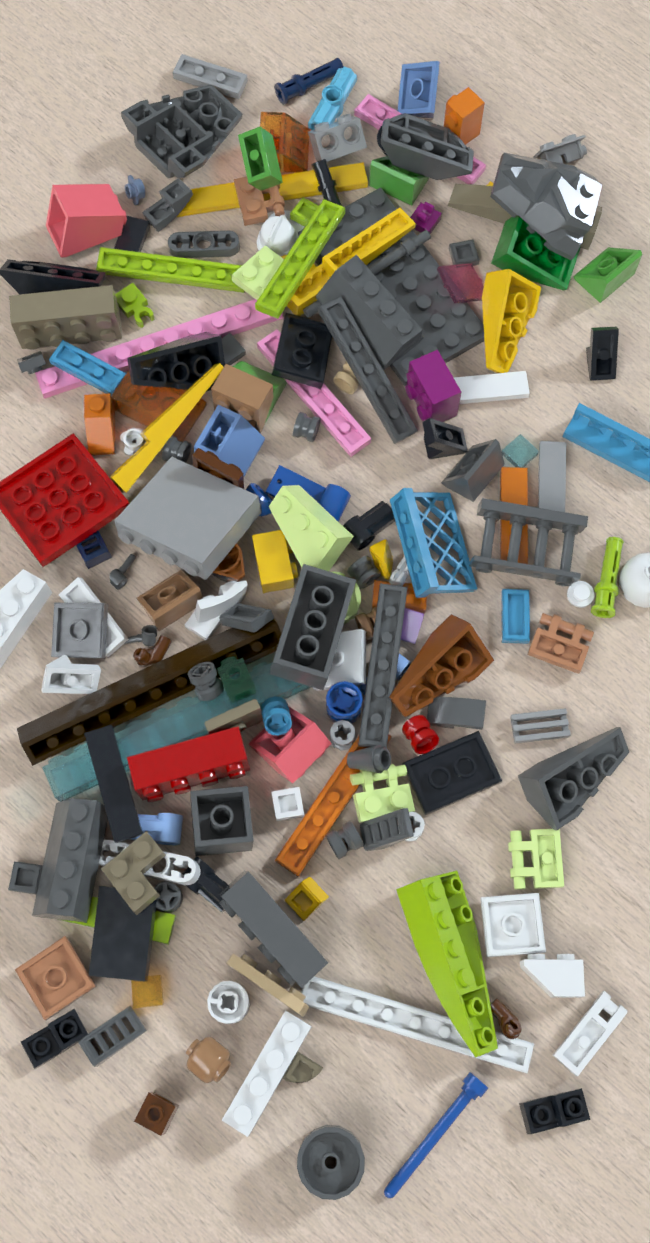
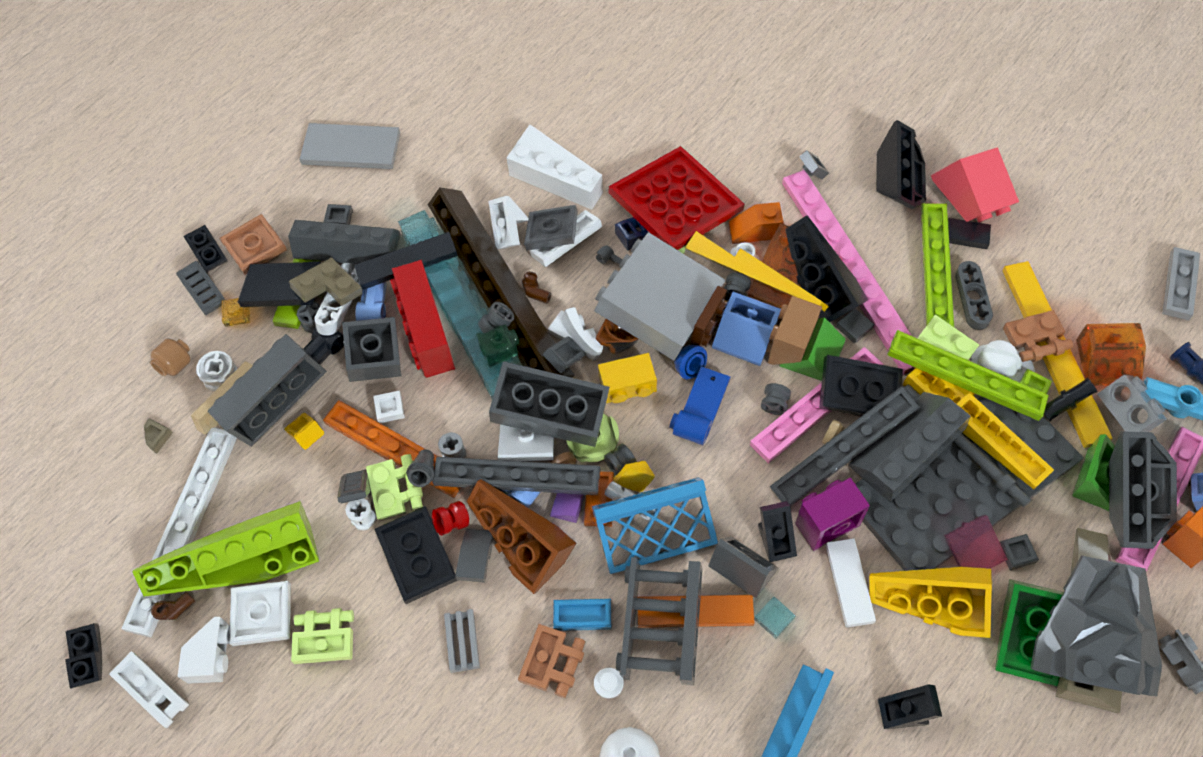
camera: 90 degrees right, 10 degrees down
(65, 315) = (861, 182): dark tan brick -> none
(86, 367) = (814, 199): dark azure tile -> none
(134, 303) = (893, 240): lime plate -> none
(135, 189) = (1022, 228): sand blue plate -> none
(148, 636) = (550, 279): dark grey hand -> none
(156, 1113) = (133, 323): reddish brown brick -> none
(170, 600) = (579, 291): medium nougat slope -> none
(173, 200) = (1004, 256): dark grey slope -> none
(181, 131) = (1106, 260): dark grey wedge -> none
(242, 716) = (461, 350): dark tan plate -> none
(260, 158) = (1073, 319): bright green brick -> none
(266, 1073) = (150, 402): white brick -> none
(276, 716) = (466, 385): dark azure wheel -> none
(293, 751) = (444, 404): coral slope -> none
(309, 528) = (657, 401): yellowish green wedge -> none
(322, 1179) = (69, 455): dark grey wheel -> none
(344, 702) = (480, 442): blue wheel -> none
(350, 836) = (350, 453): dark grey wheel -> none
(369, 524) = (668, 457): black piece -> none
(425, 217) = (1055, 508): magenta tile -> none
(471, 1090) = (115, 578): blue piece -> none
(552, 475) = (745, 652): light grey tile -> none
(566, 780) = (402, 668): dark grey wedge -> none
(607, 589) = (609, 711): lime pin -> none
(608, 271) = (1027, 718): bright green slope -> none

